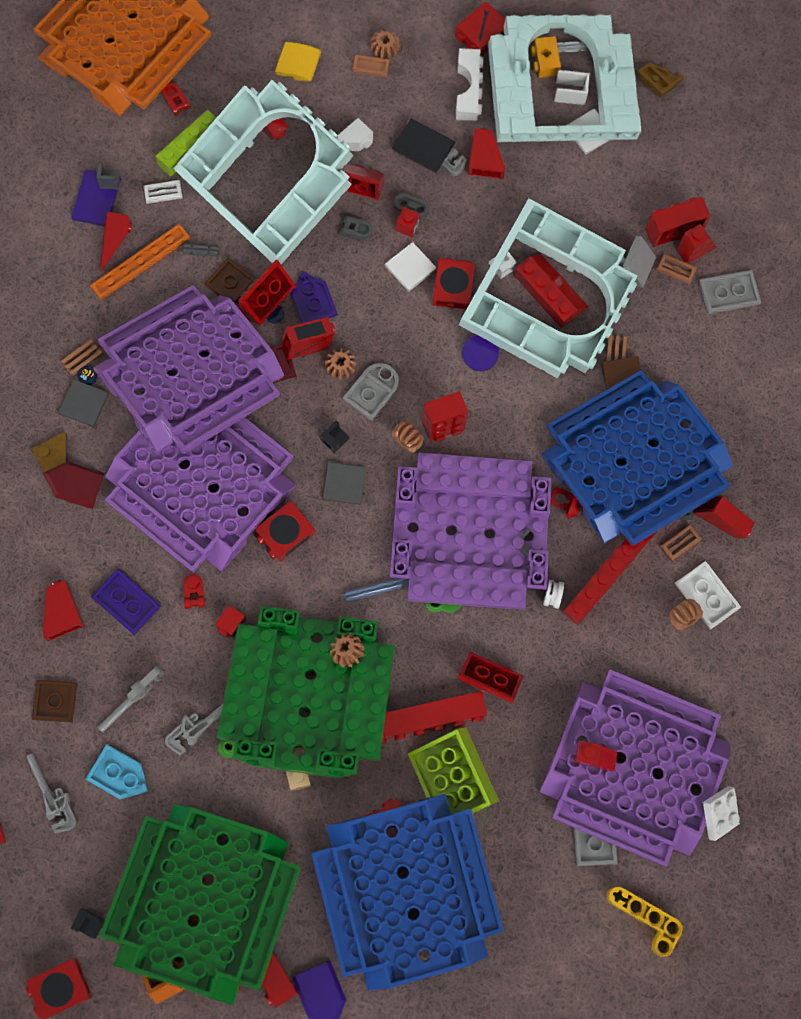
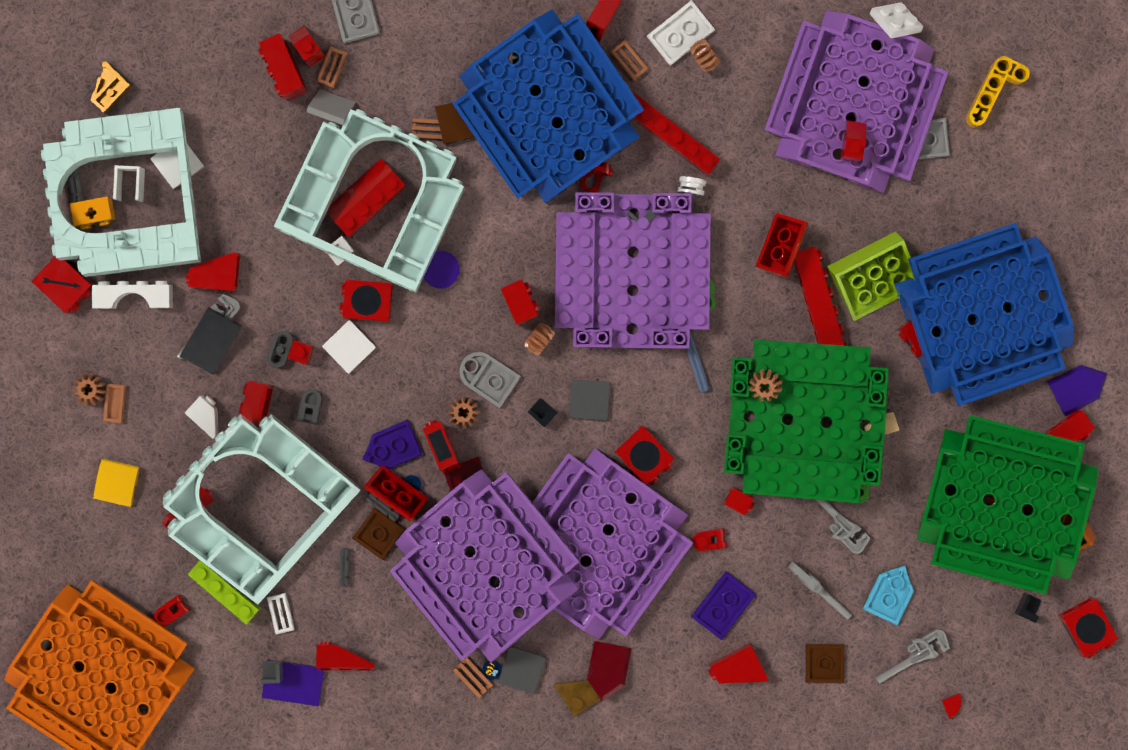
camera: 90 degrees left, 15 degrees up
(140, 261) = (362, 628): orange tile -> none

